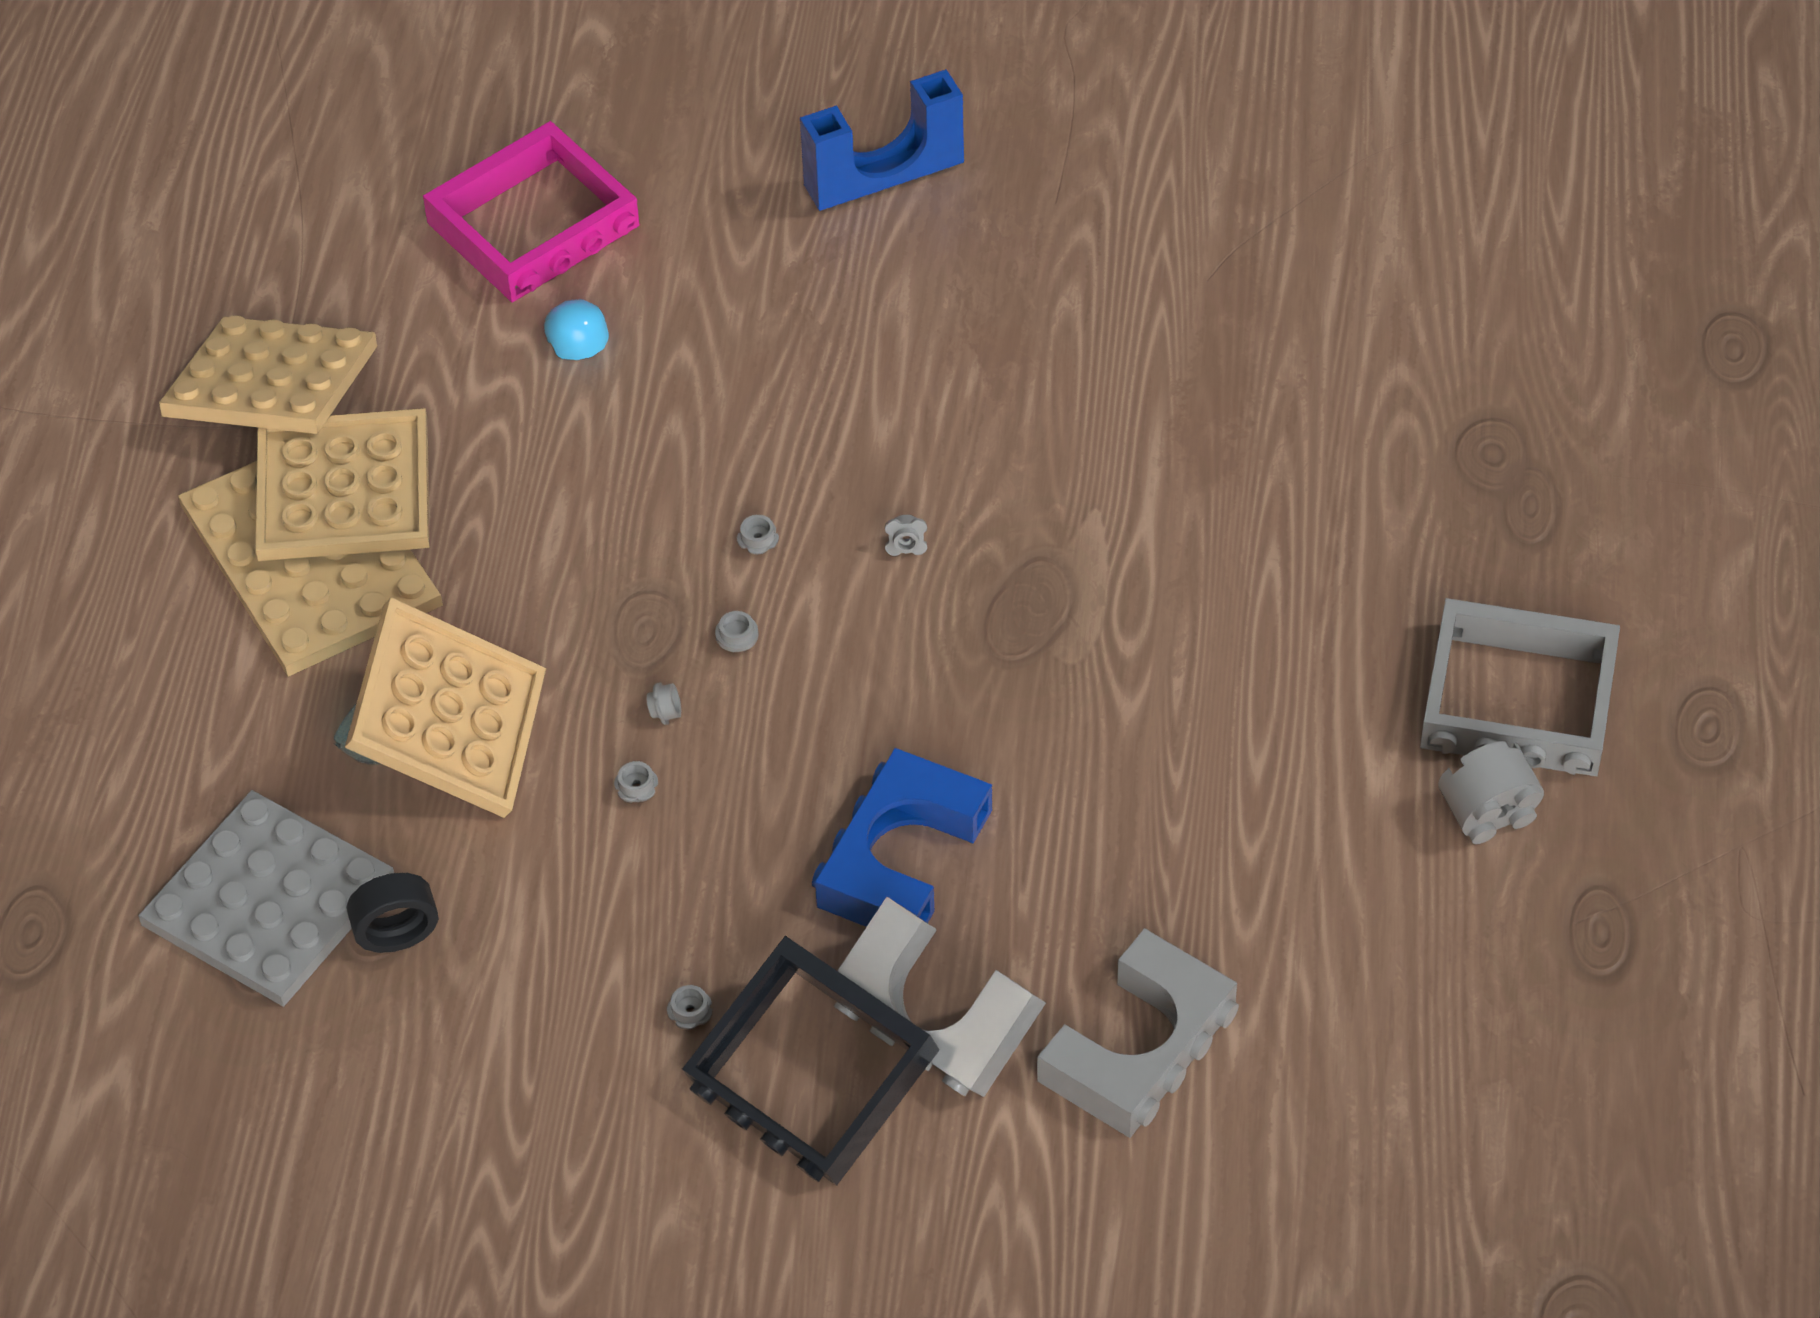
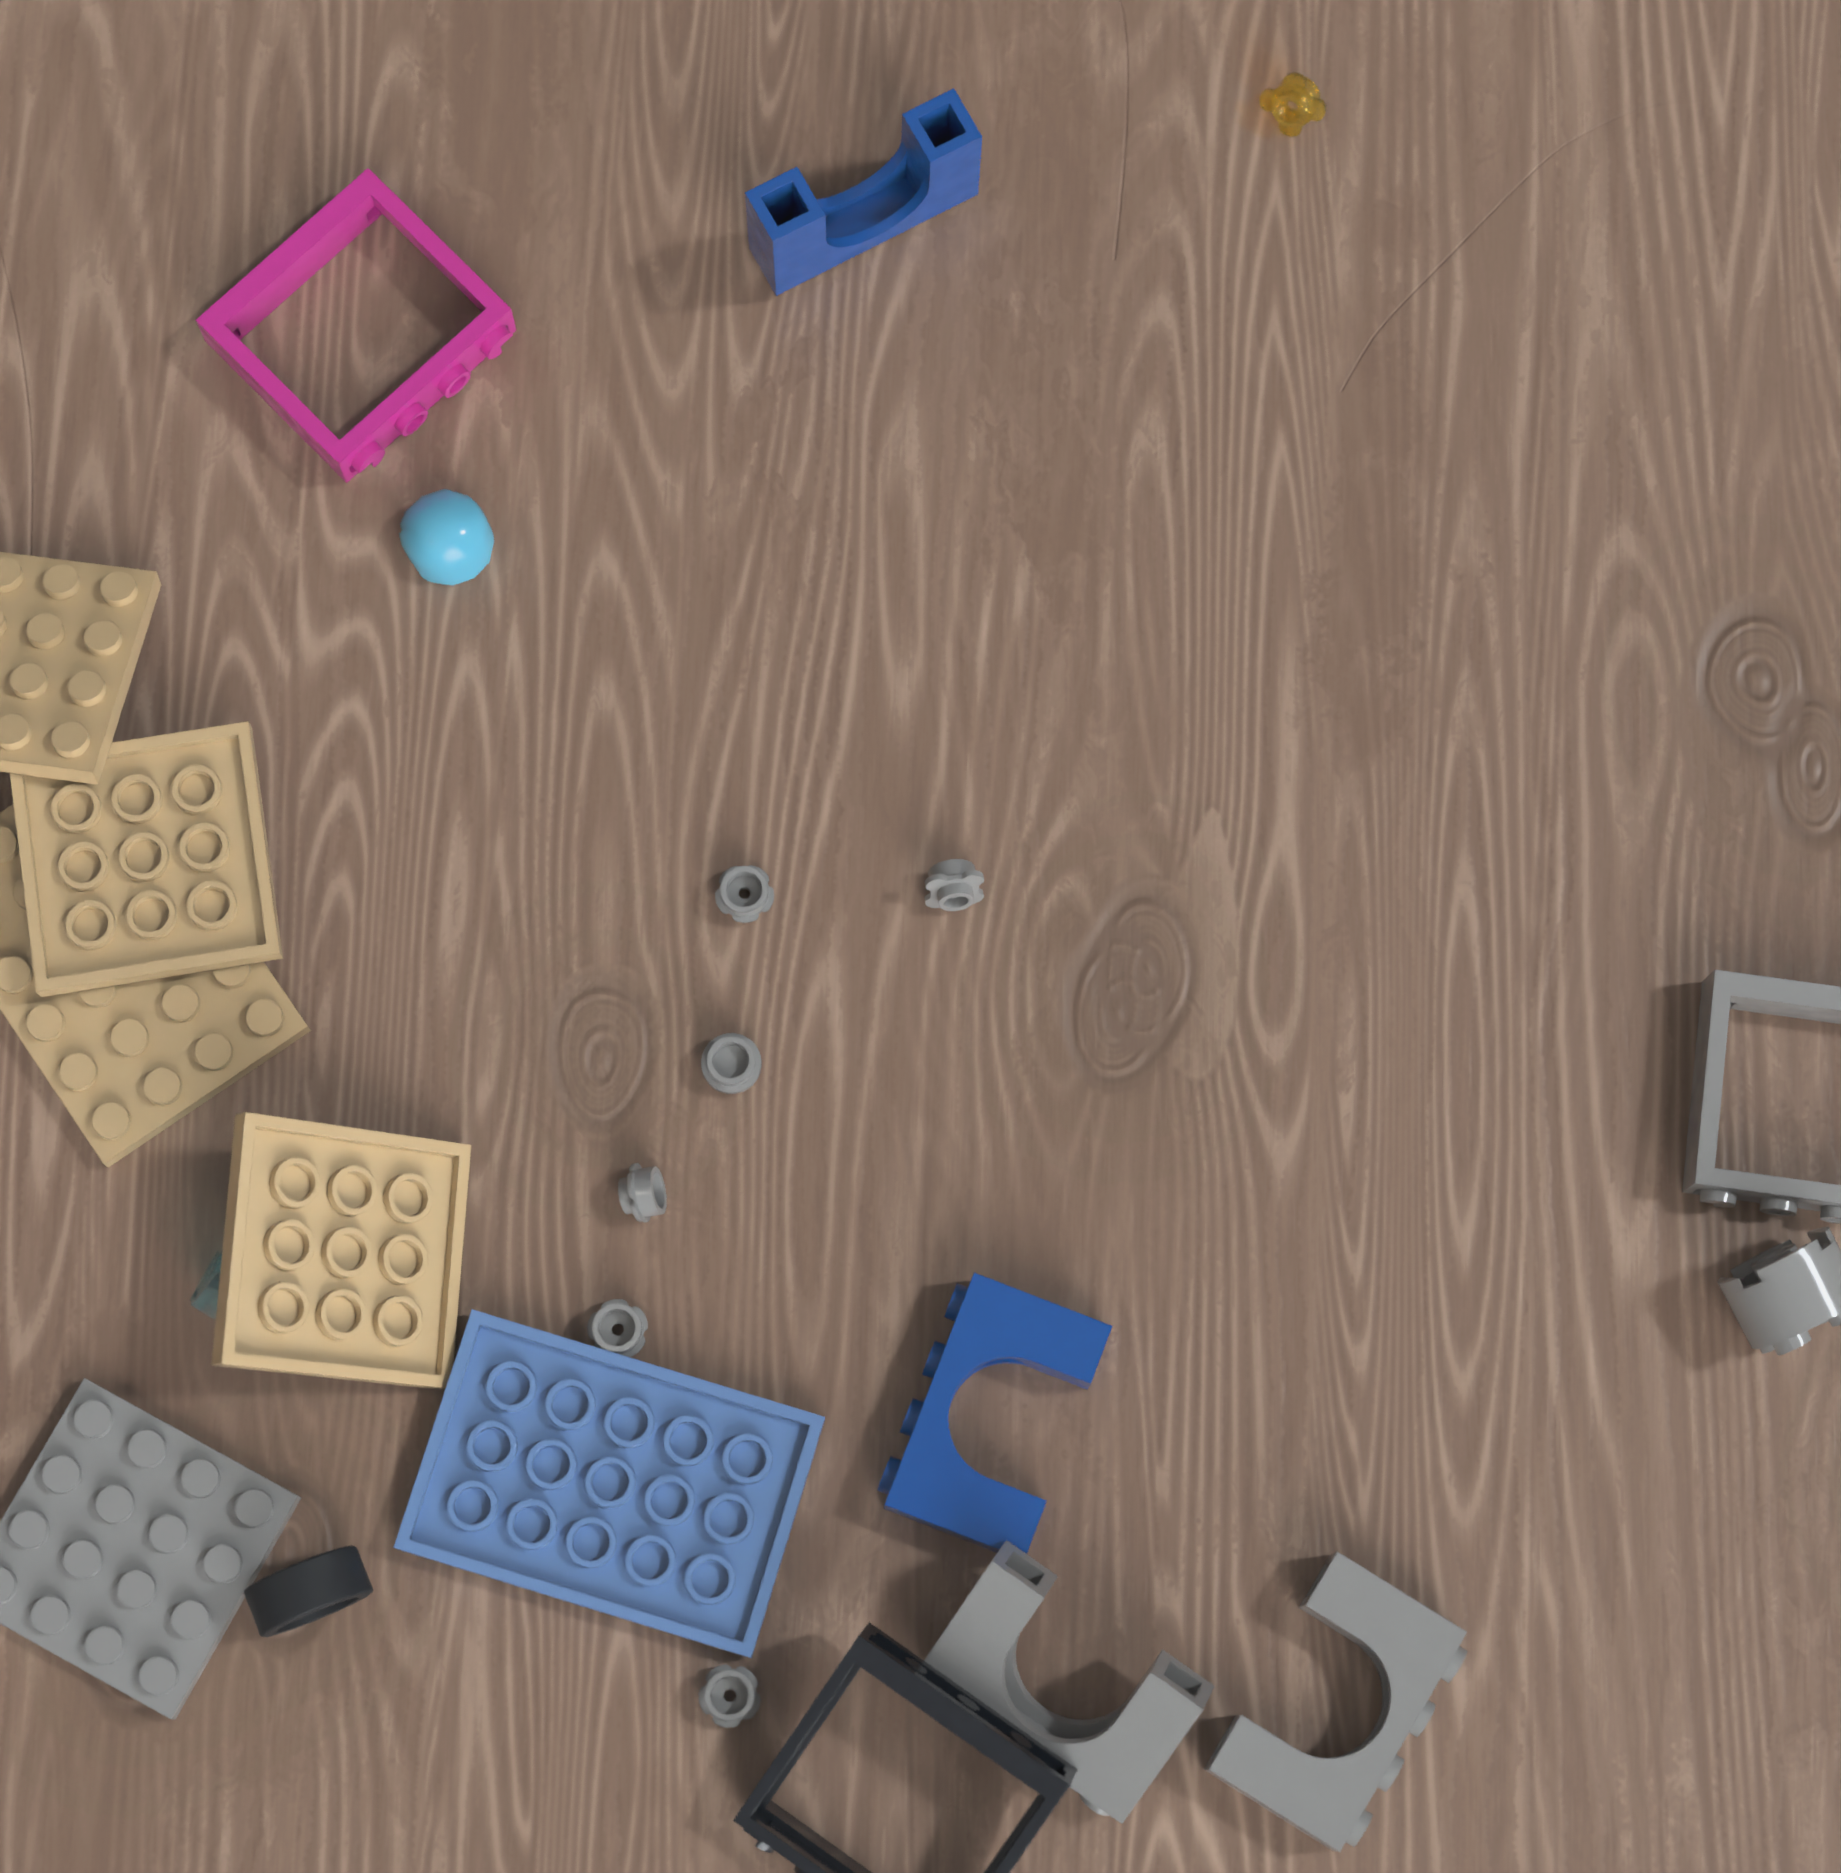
camera: 10 degrees left, 25 degrees up
(619, 873) = (610, 1483): none -> medium blue plate
(1195, 118) = (1299, 91): none -> clear yellow plate

